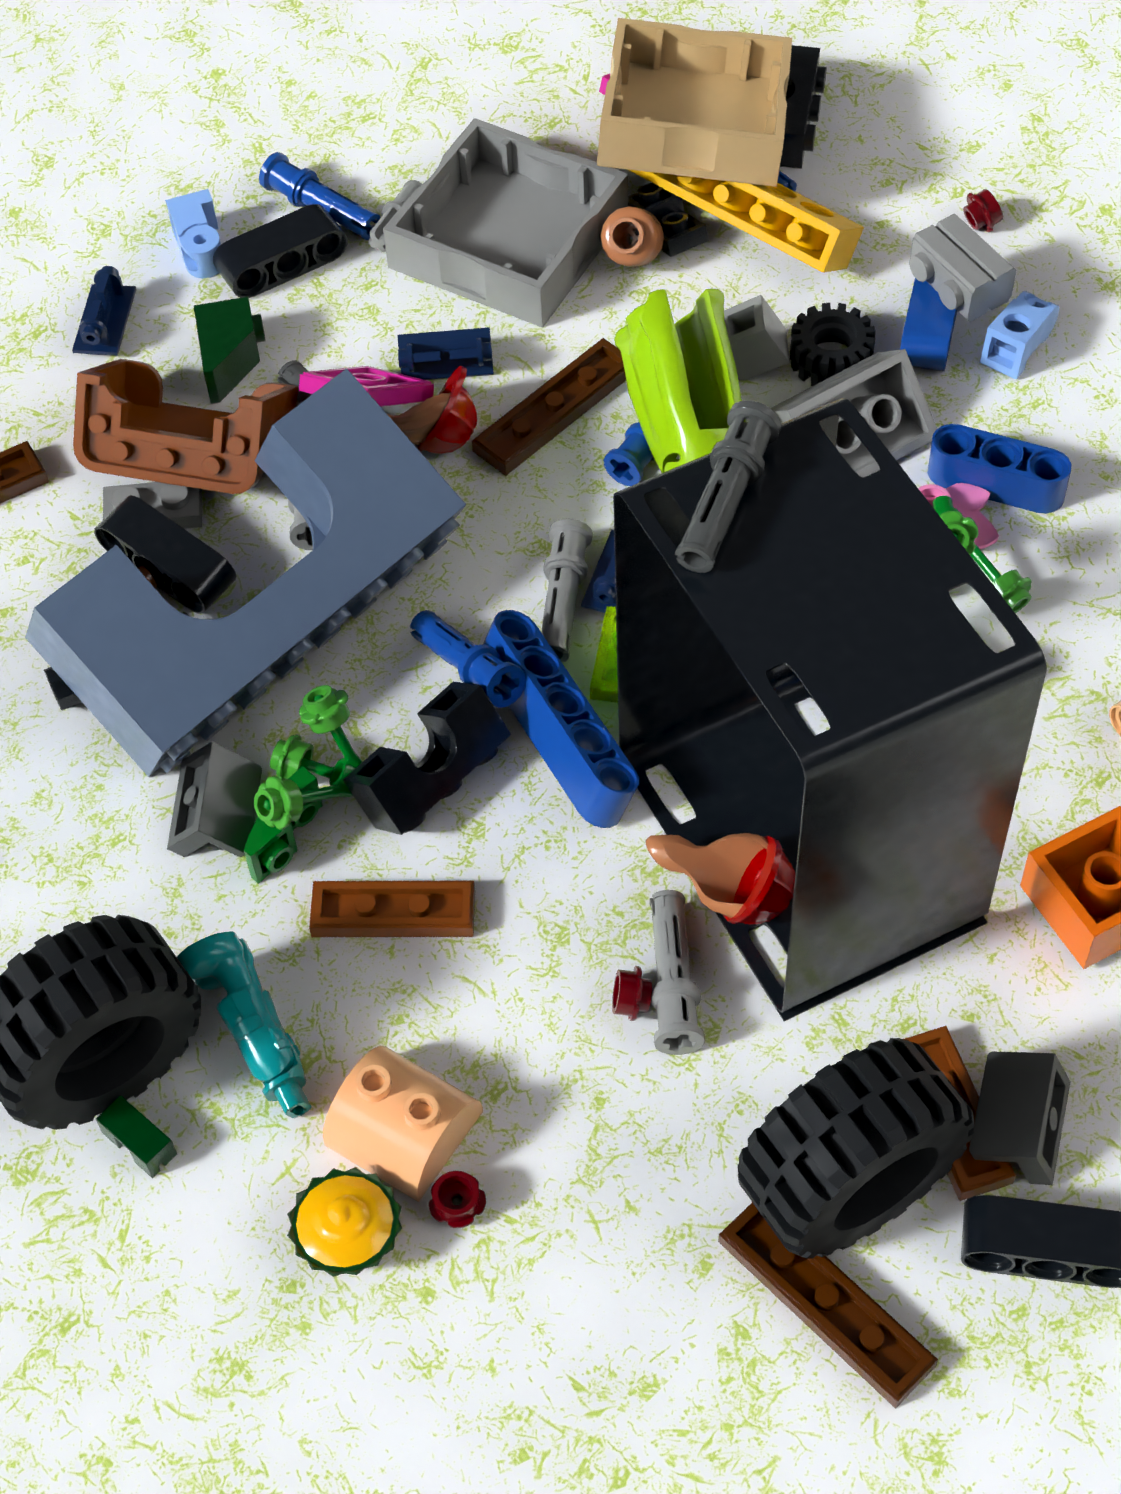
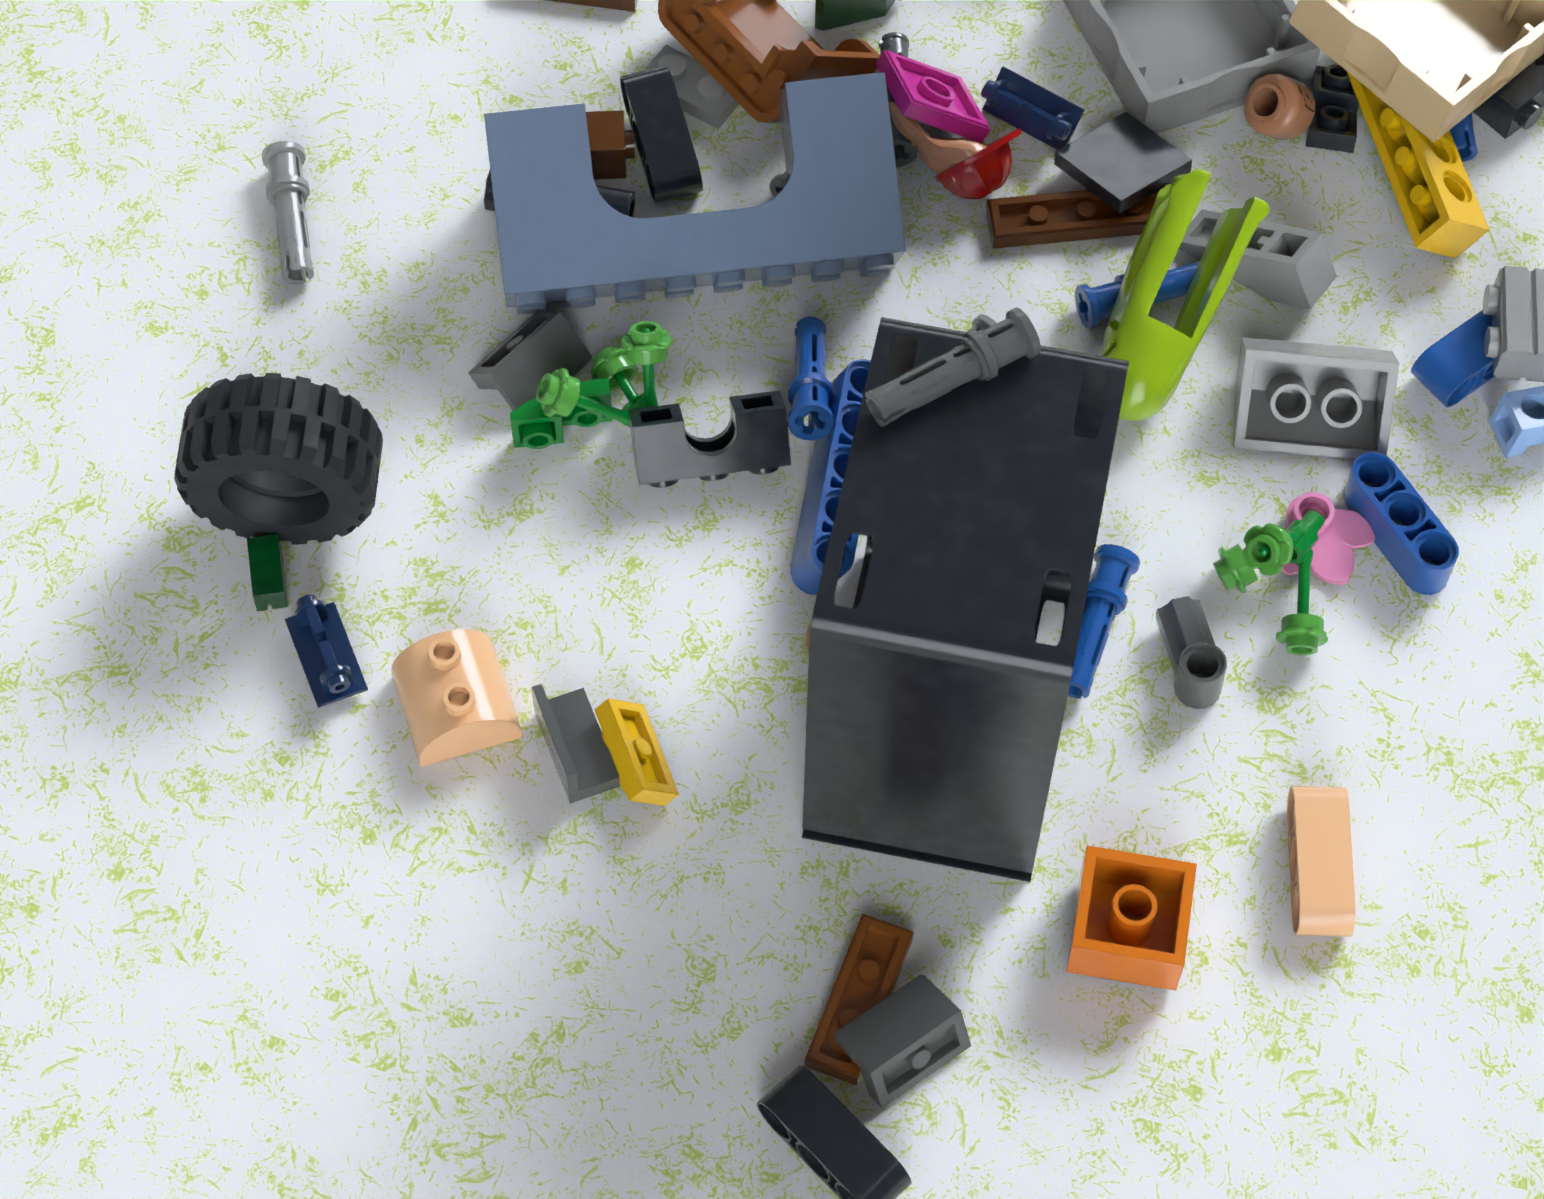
camera: 35 degrees right, 5 degrees up
(250, 1017) = (410, 543): teal piece -> none
(250, 1166) = (325, 651): none -> dark blue hinge
(344, 1222) = (348, 739): yellow piece -> none
(392, 909) = (591, 538): dark orange tile -> none
(452, 1185) = (443, 771): dark red plate -> none
(535, 1082) = (575, 743): none -> dark grey panel
(551, 348) = (1122, 162): none -> tile
(583, 1043) = (636, 752): none -> yellow plate
(631, 993) = (701, 730): dark red plate -> none
(675, 993) = (736, 758): light grey pin -> none
(829, 326) = (1368, 296): black tyre -> none
(832, 1308) = (637, 1059): reddish brown tile -> none
(854, 1147) = (727, 956): black tyre -> none

